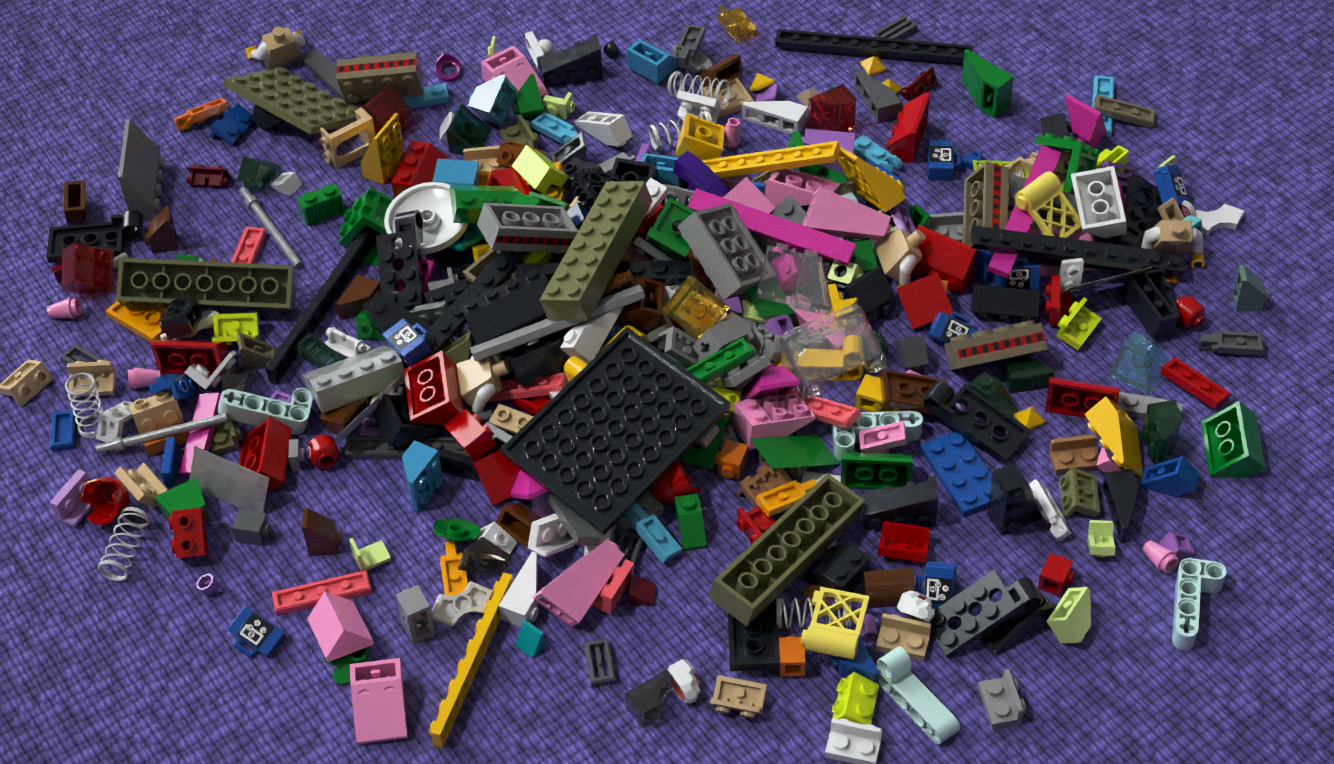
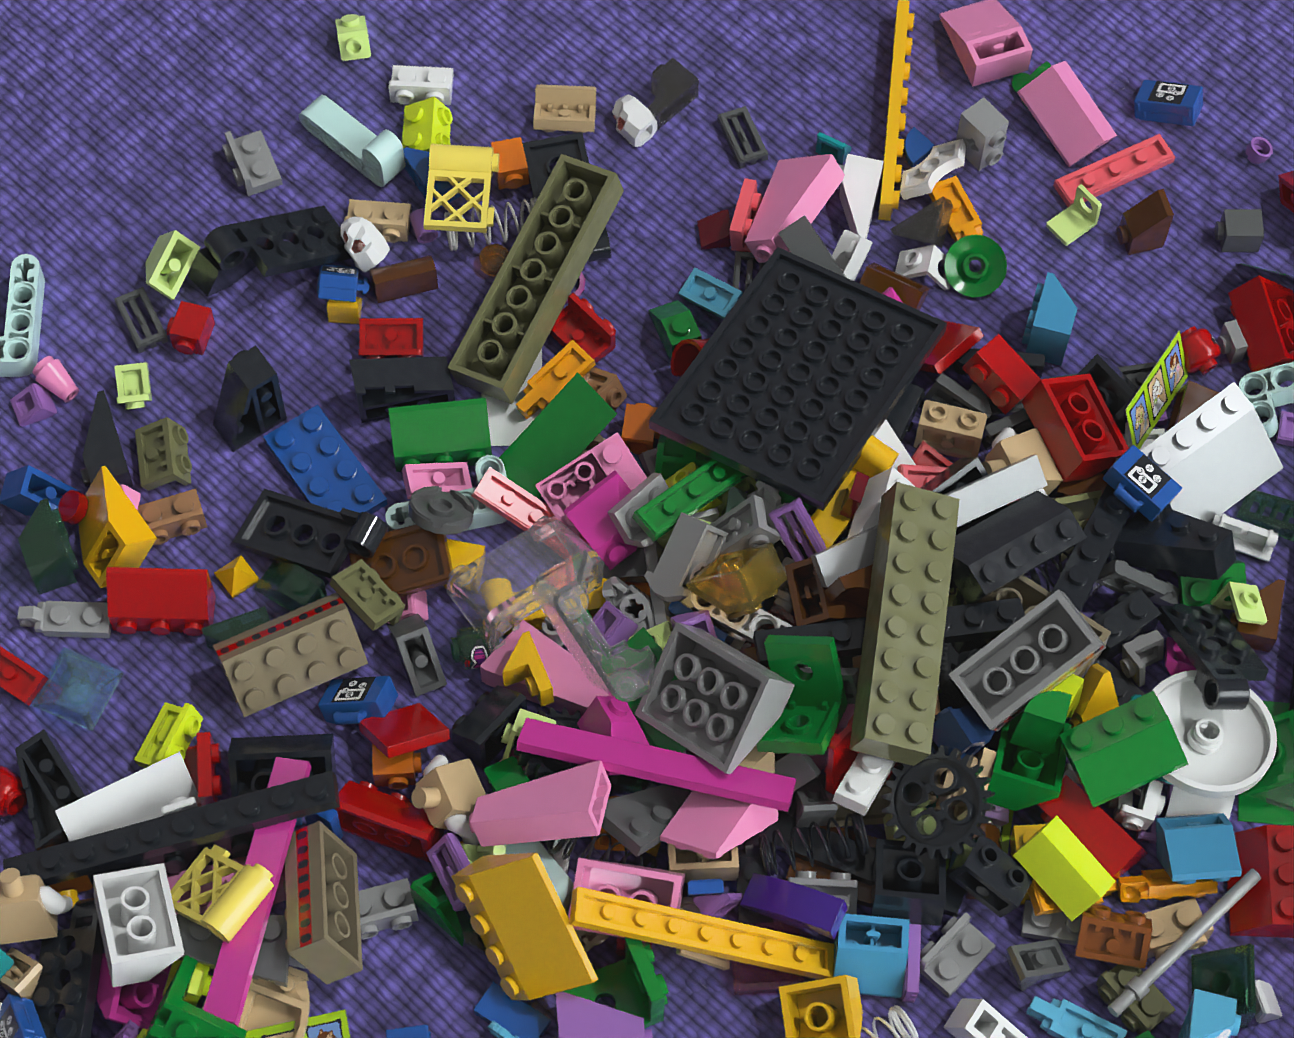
camera: 165 degrees right, 15 degrees up
(367, 287) = (1244, 601): none -> yellowish green bracket
(465, 631) = (916, 147): none -> blue tile
(517, 127) = (1139, 986): none -> light grey bar
(601, 341) = (854, 495): none -> dark red tile
(646, 331) = (807, 524): none -> medium lavender tile
(840, 568) = (463, 286): black slope -> none
(884, 402) = (440, 510): none -> dark grey tile
(939, 360) = (368, 595): none -> olive bracket
(1050, 510) = (202, 424): white hinge -> none
(1100, 611) = (150, 339): none -> dark grey tile
(1145, 460) = (73, 507): none -> red tile

